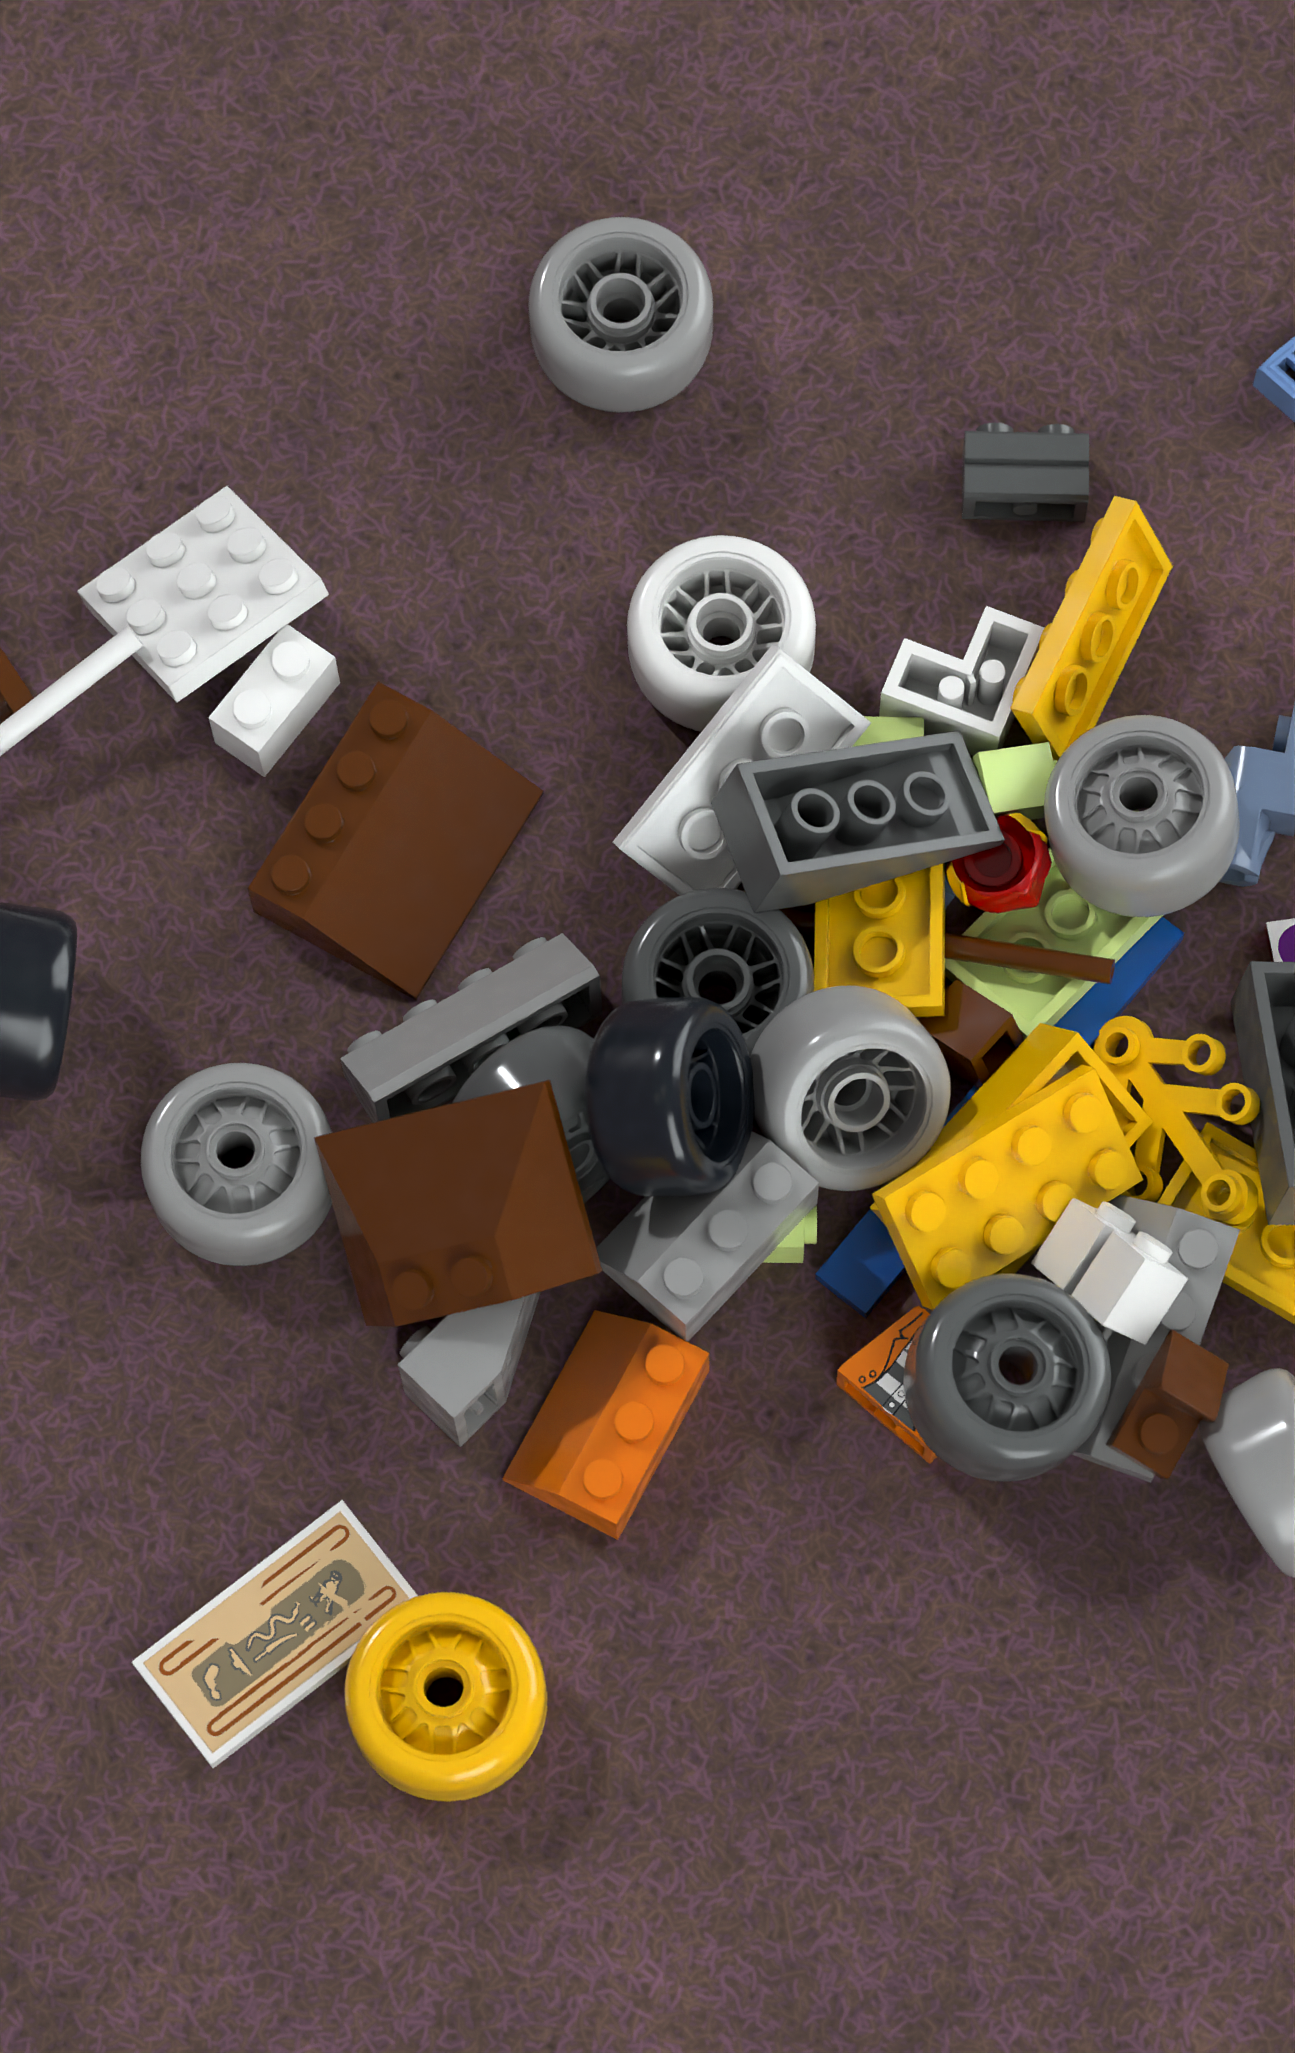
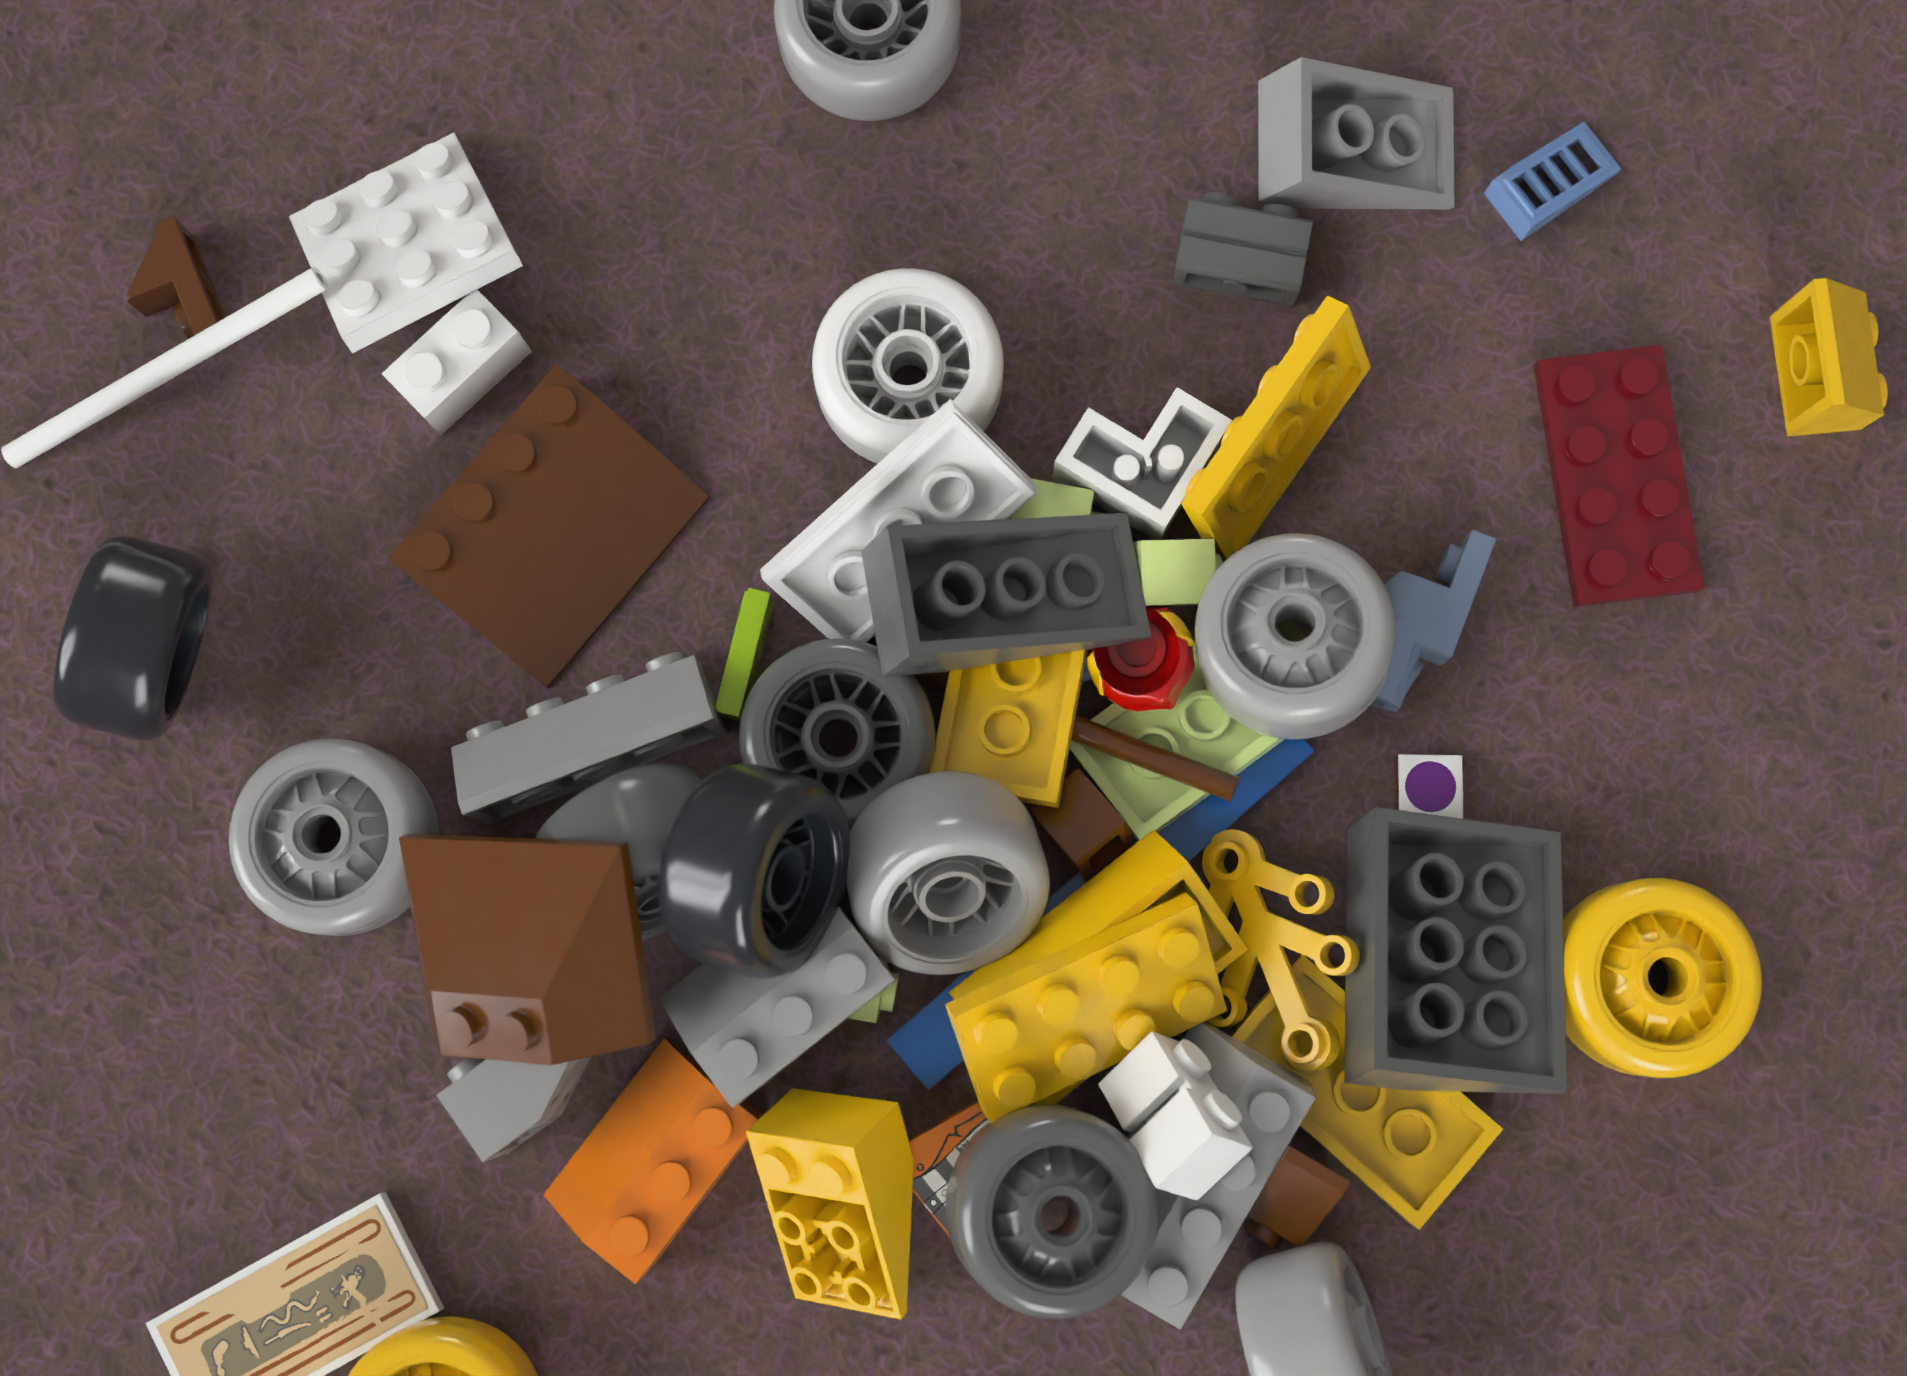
camera: 10 degrees right, 10 degrees up
(610, 928) = (745, 653): none -> lime tile
(800, 1417) = (839, 1197): none -> yellow slope
(1115, 353) = (1354, 139): none -> light grey slope
(1169, 1403) = (1214, 1264): reddish brown slope -> none
(1242, 1328) = (1294, 1200): none -> reddish brown slope

